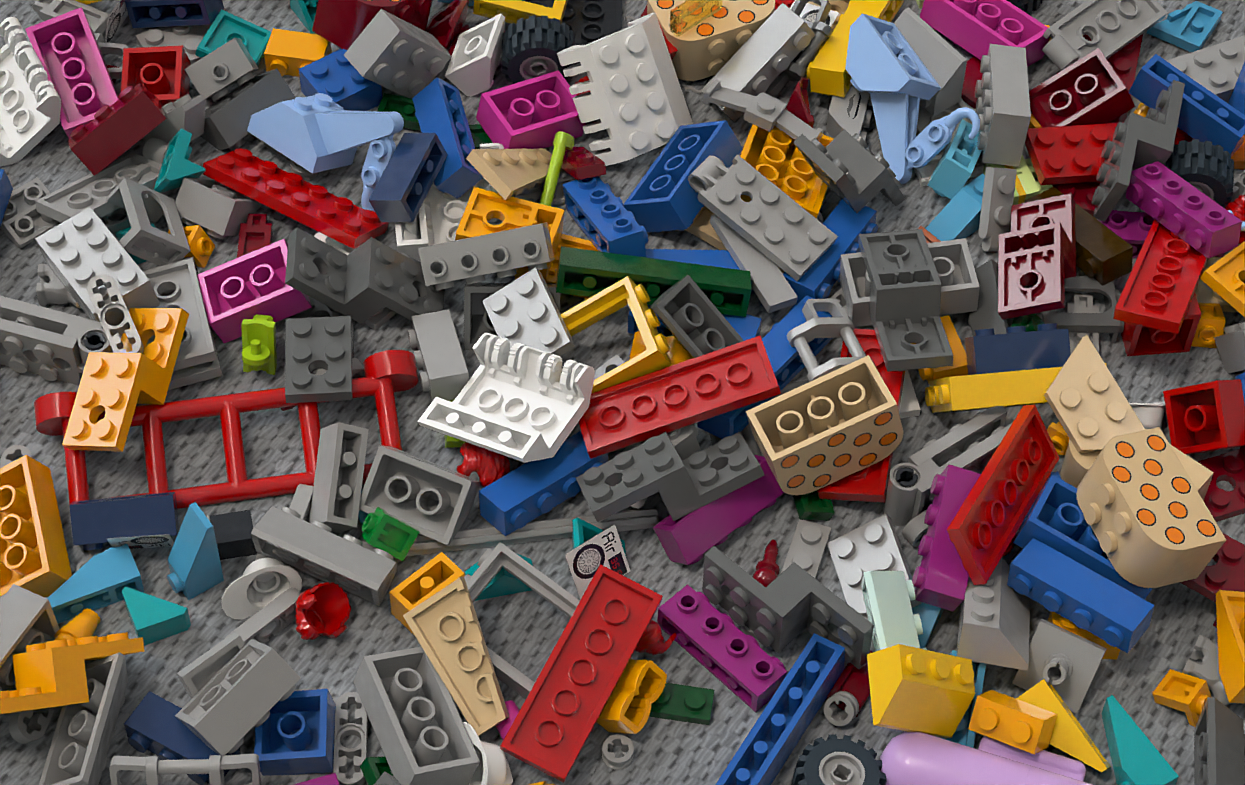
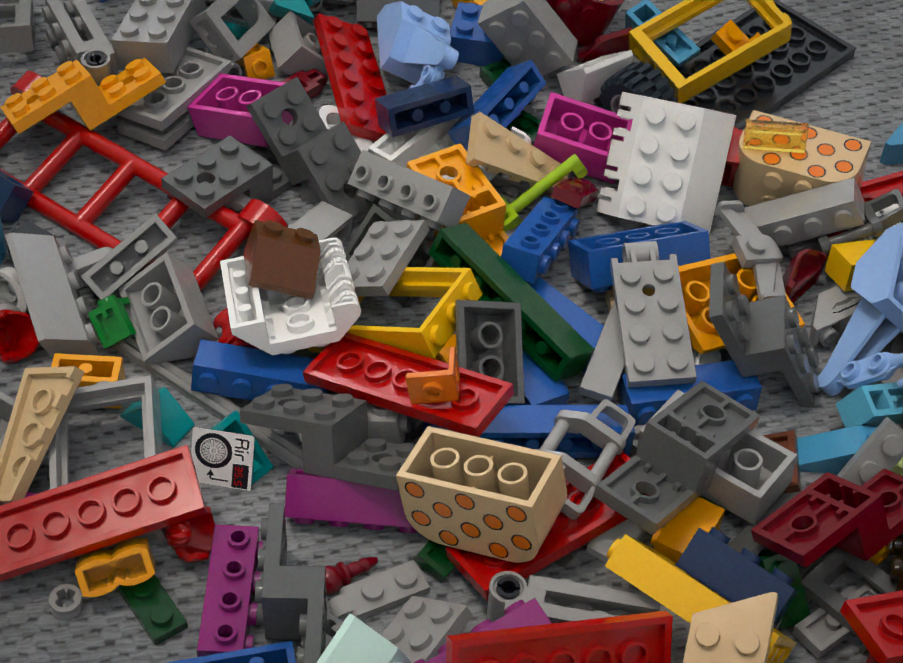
camera: 45 degrees right, 5 degrees down
(116, 304) = (117, 61): light grey beam -> none
(259, 344) = (203, 137): lime hips -> none
(474, 380) = (282, 259): none -> reddish brown slope
(720, 378) = (435, 385): none -> orange bracket

